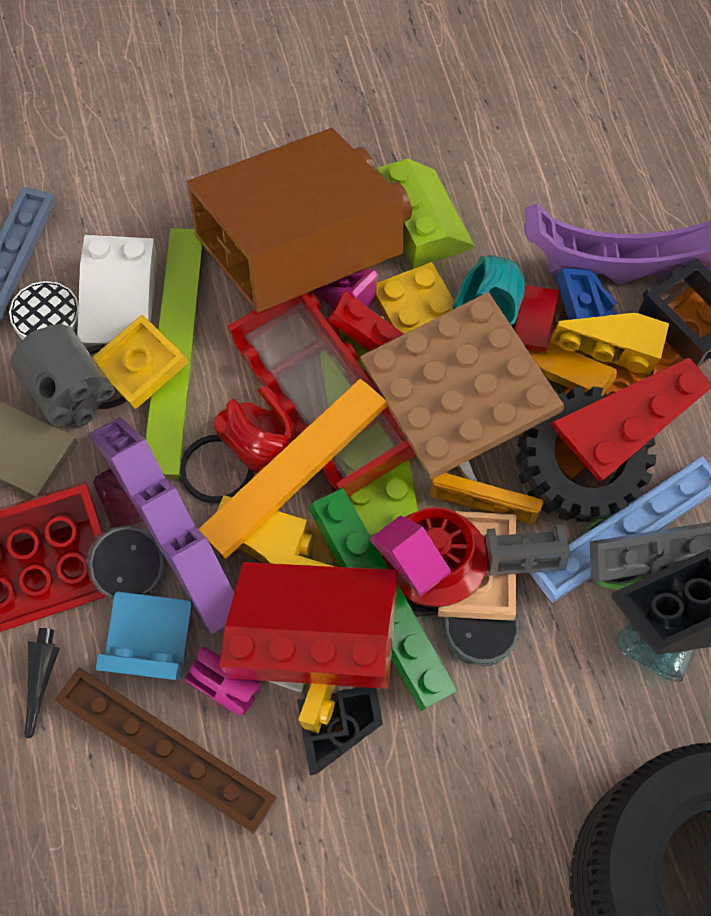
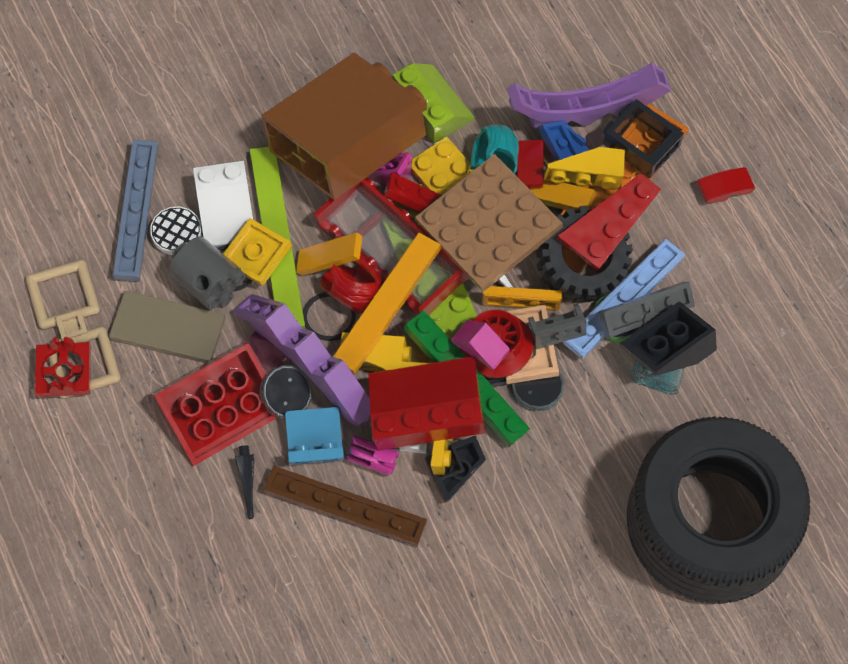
camera: 10 degrees left, 0 degrees up
(239, 382) = (326, 254): none -> light orange tile

